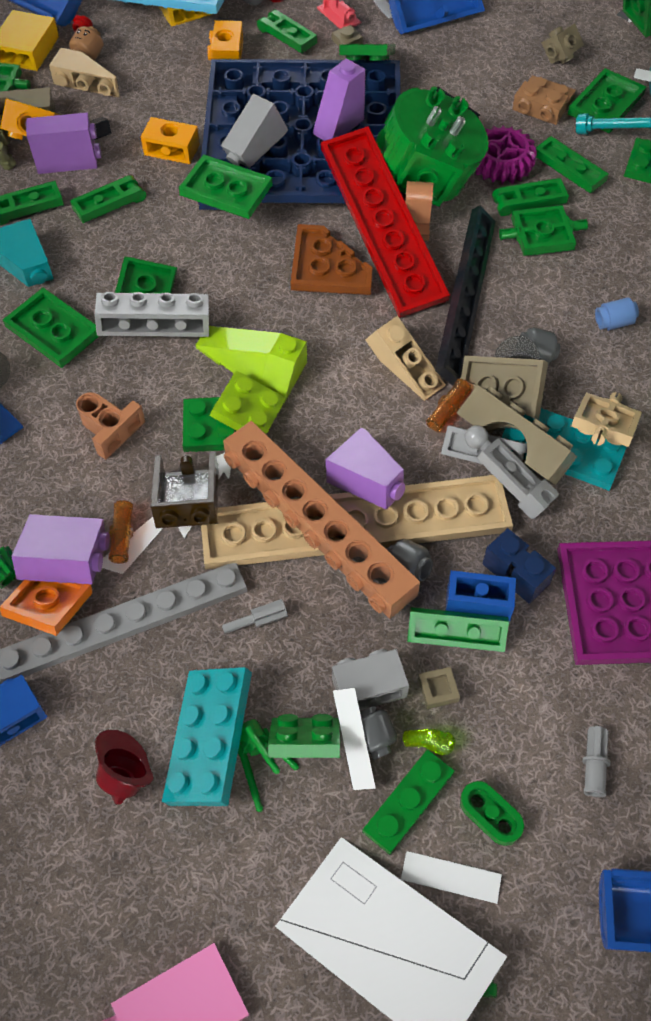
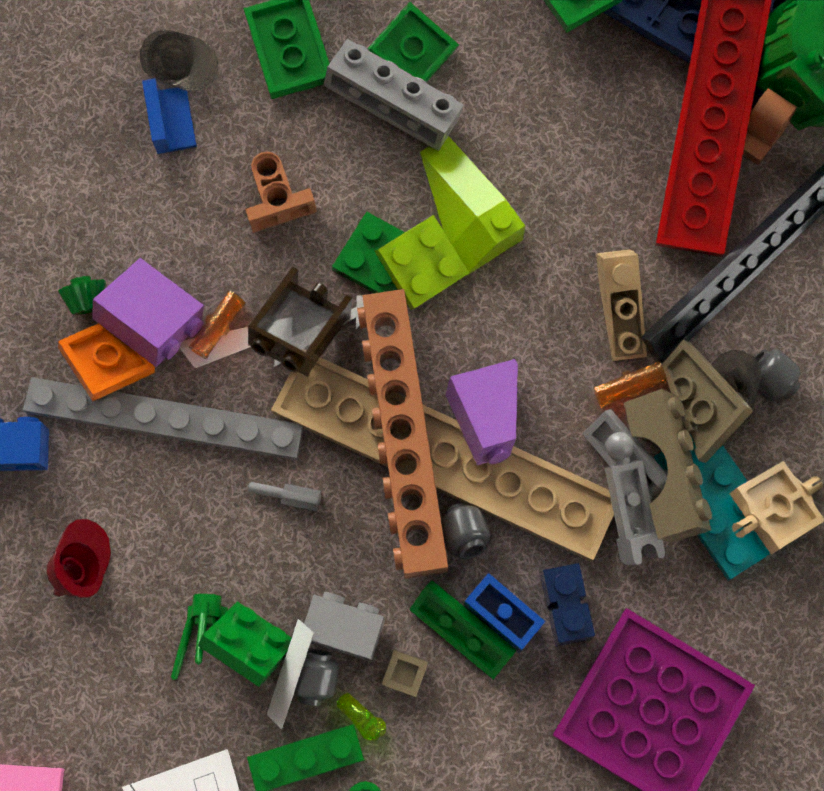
camera: 35 degrees right, 15 degrees up
(207, 738) = (167, 584): teal plate -> none
(326, 264) = (621, 132): dark orange plate -> none

